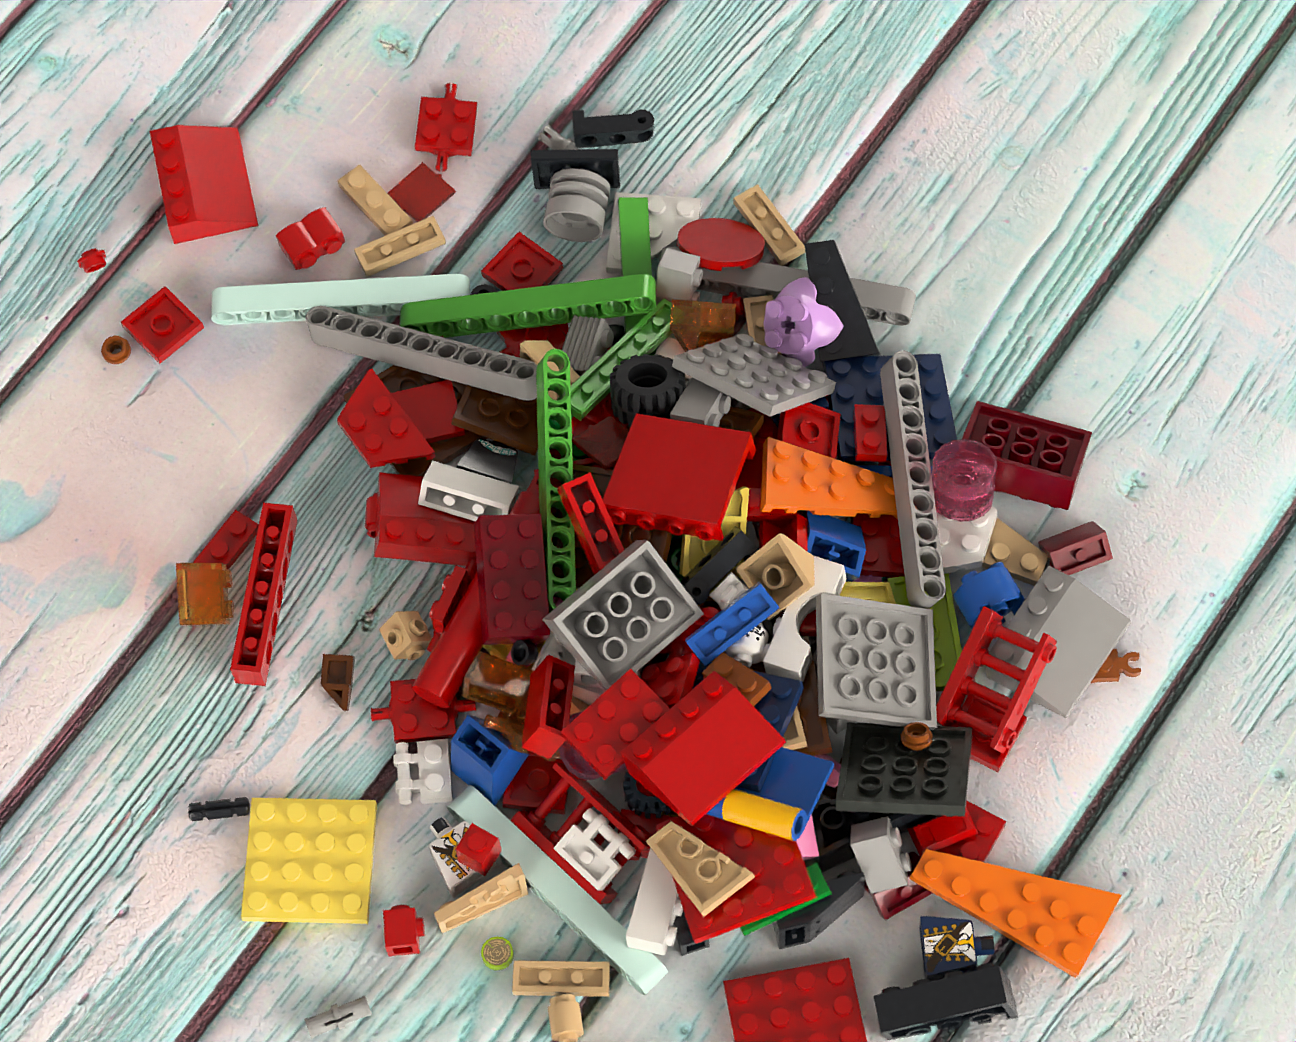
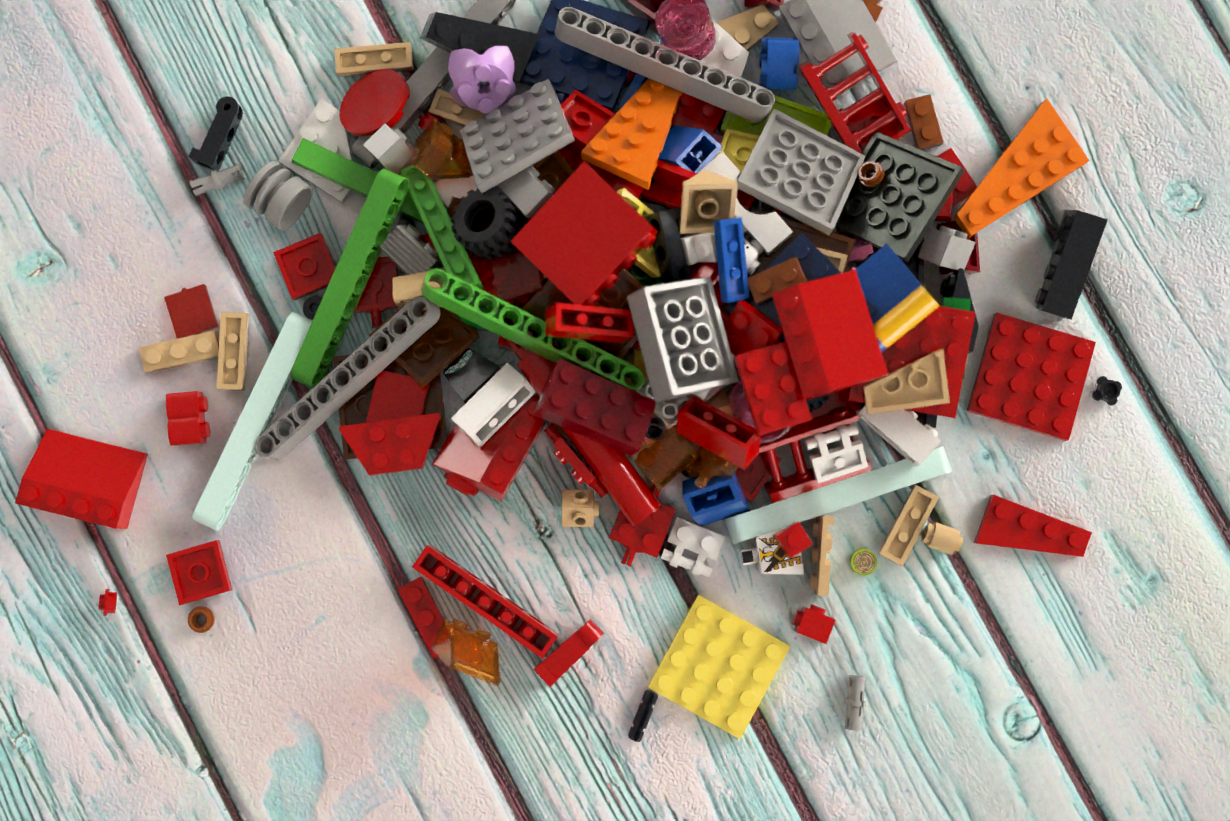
camera: 65 degrees left, 20 degrees up
(248, 702) = (568, 653): none -> red leg
(338, 678) = (582, 576): reddish brown slope -> none
(446, 126) = (142, 262): red plate -> none
(599, 161) = (252, 160): black tile -> none
(870, 433) = (606, 75): red plate -> none
(951, 946) = (1027, 238): torso -> none
(1018, 782) = (923, 122): none -> dark orange plate

